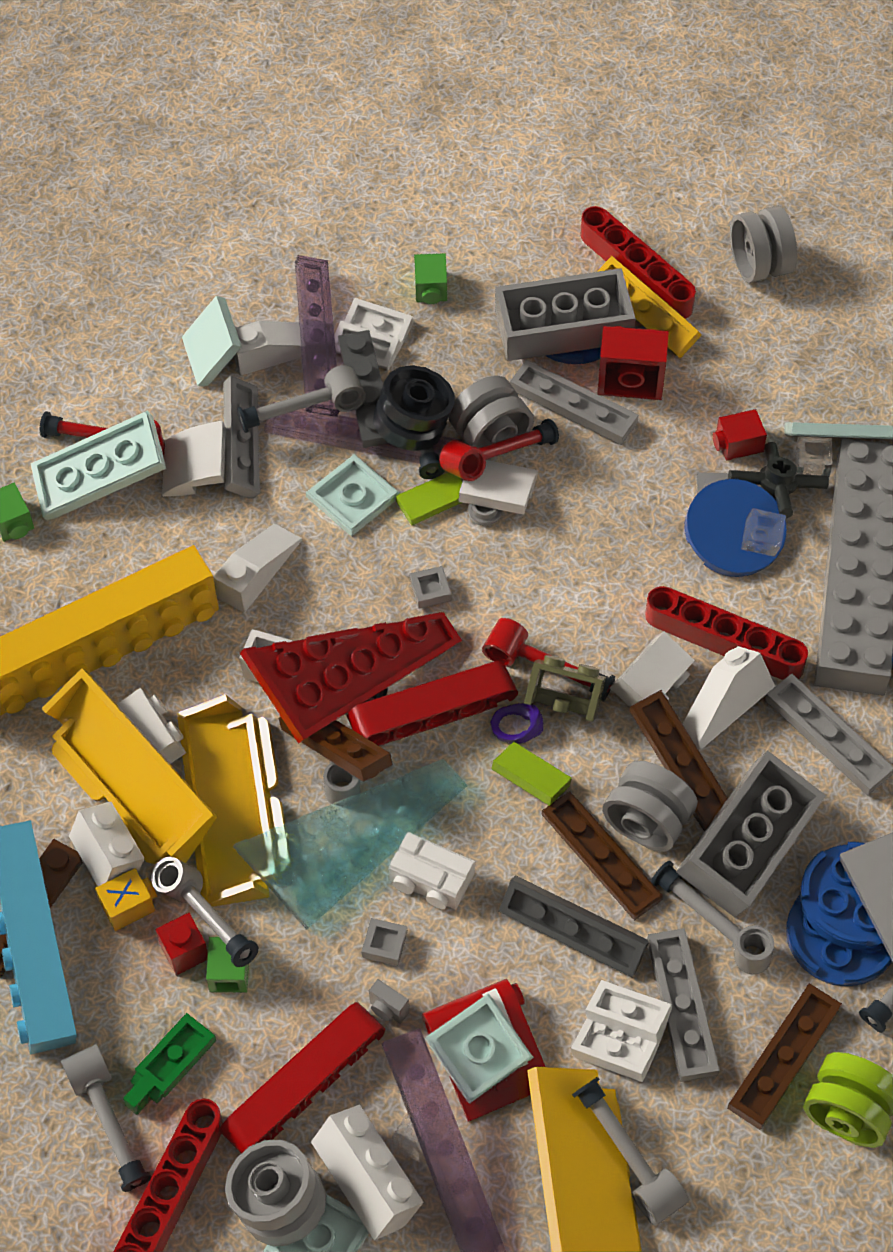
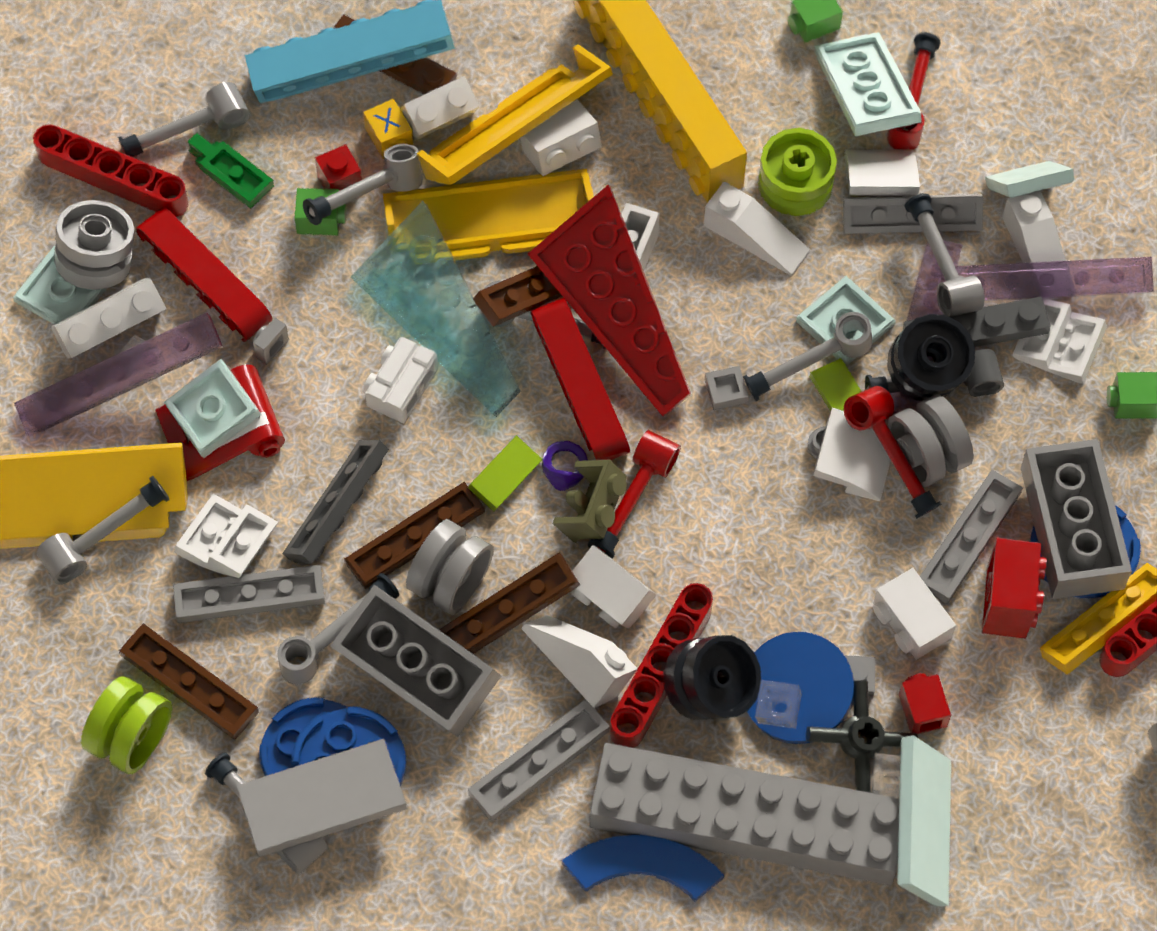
camera: 90 degrees right, 5 degrees up
(198, 517) = (797, 171): none -> lime wheel
(384, 942) = (333, 340): light grey plate -> none
(386, 489) = (760, 383): none -> light grey piece
(655, 441) = (913, 614): none -> white brick
(745, 582) = (712, 677): none -> black wheel

